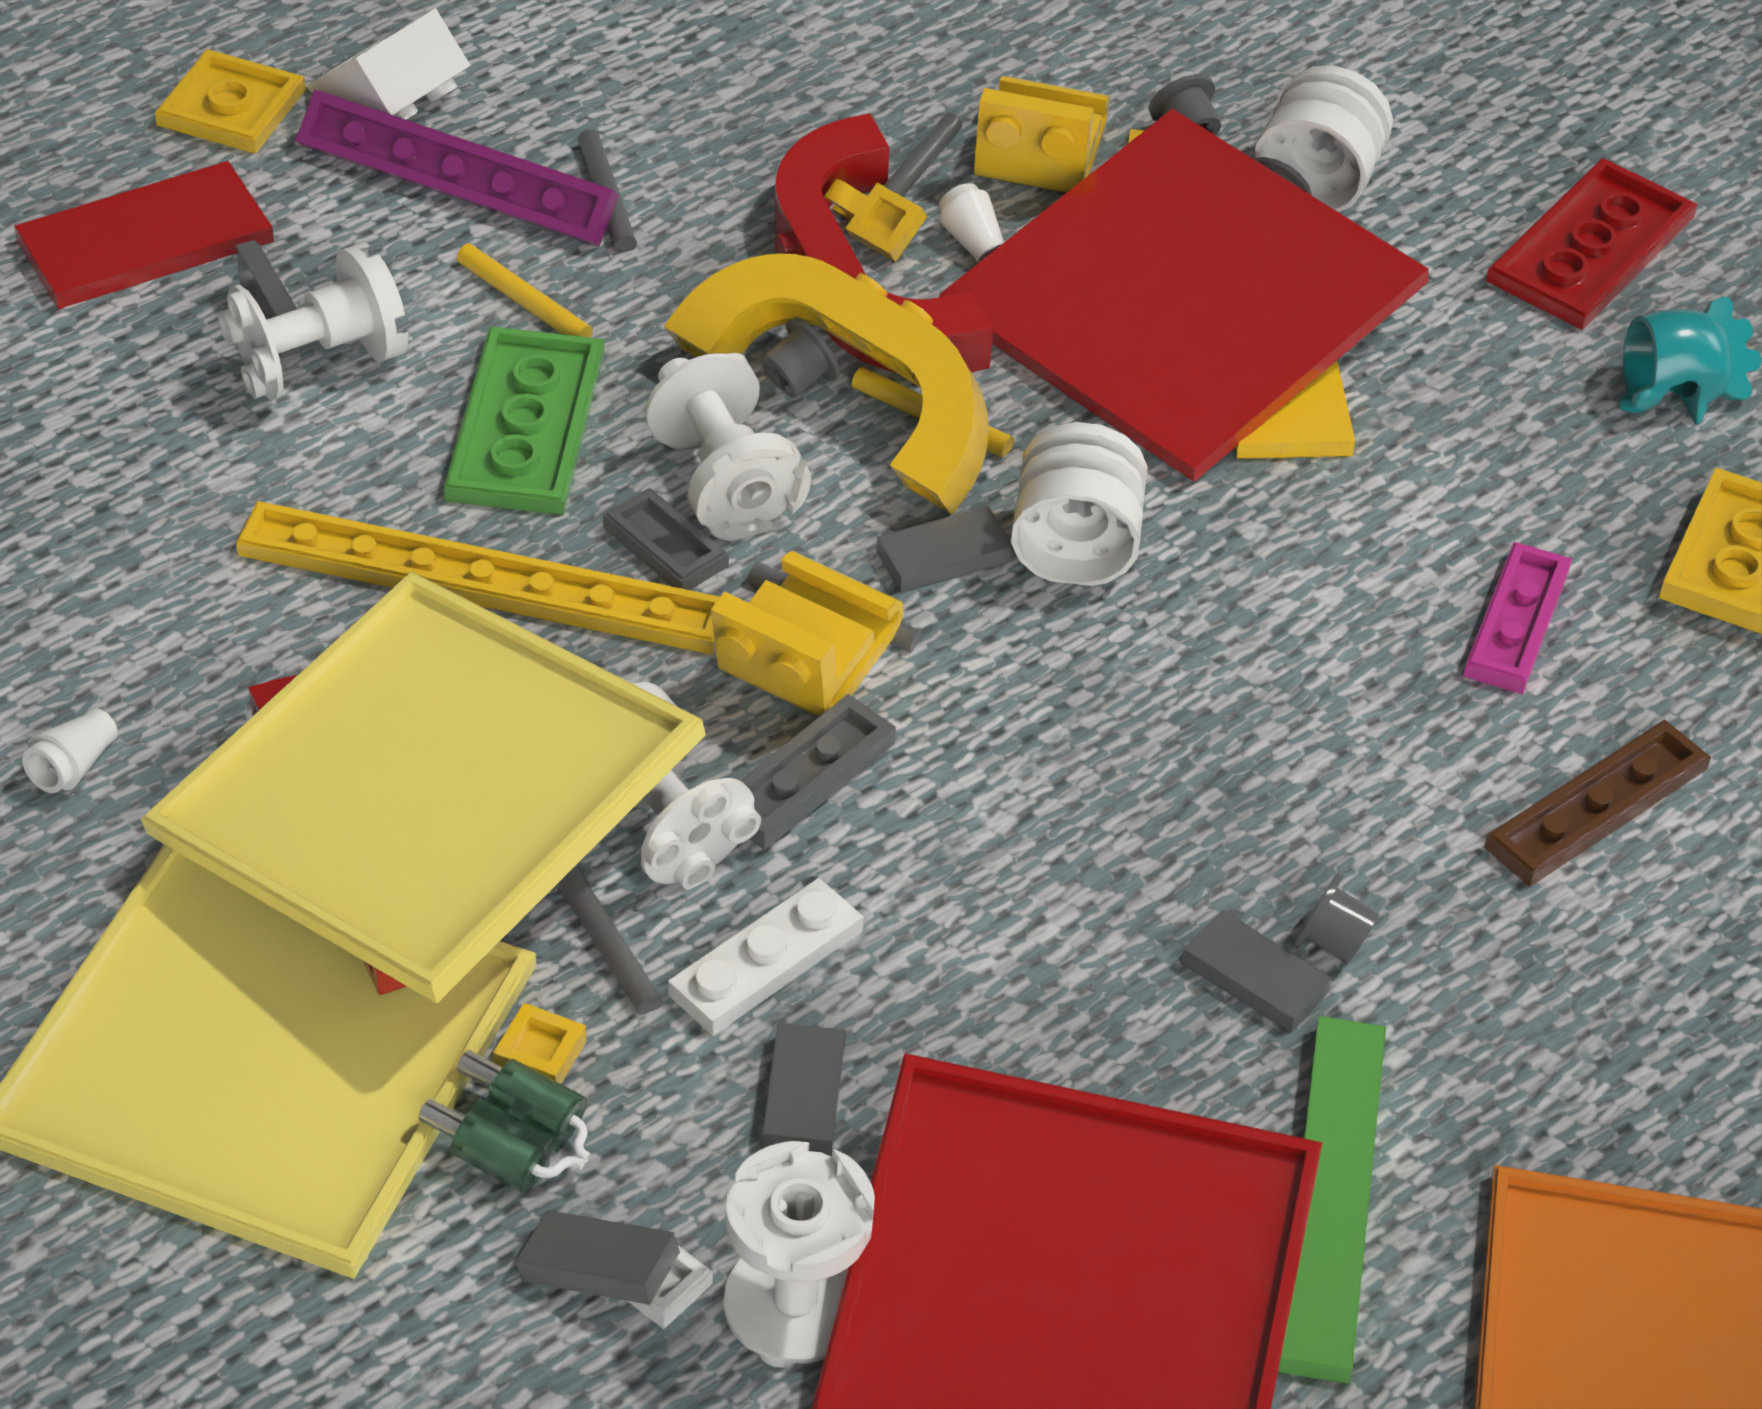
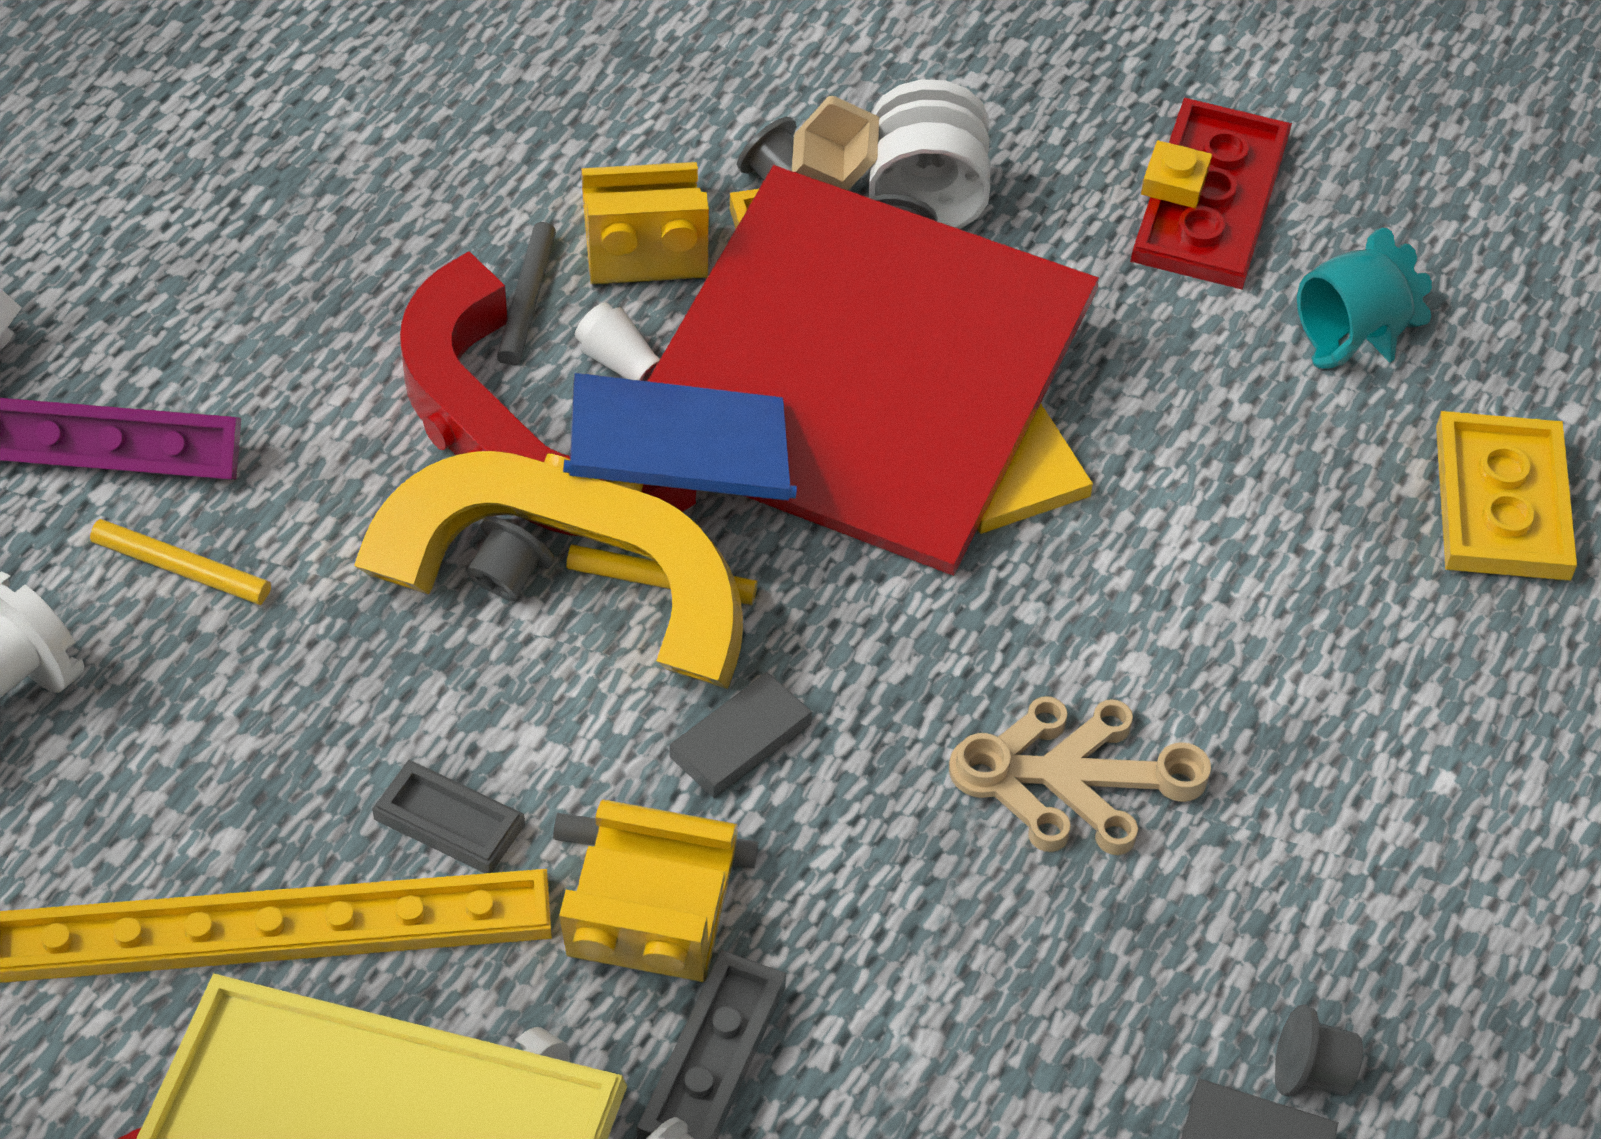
camera: 20 degrees left, 5 degrees up
(525, 420) = (241, 717): bright green tile -> none
(601, 174) = (215, 403): dark grey bar -> none
(742, 473) = (509, 720): white piece -> none
(877, 220) = (521, 368): yellow plate -> none
(983, 294) = (679, 437): none -> blue piece
(1079, 504) = (869, 649): white wheel -> none
(1158, 633) = (1070, 772): none -> tan plant
(1239, 105) = (836, 143): none -> tan panel
(1517, 618) = (1327, 634): dark pink tile -> none
(1558, 215) = (1176, 174): none -> yellow plate
(1596, 802) = (1490, 823): reddish brown tile -> none

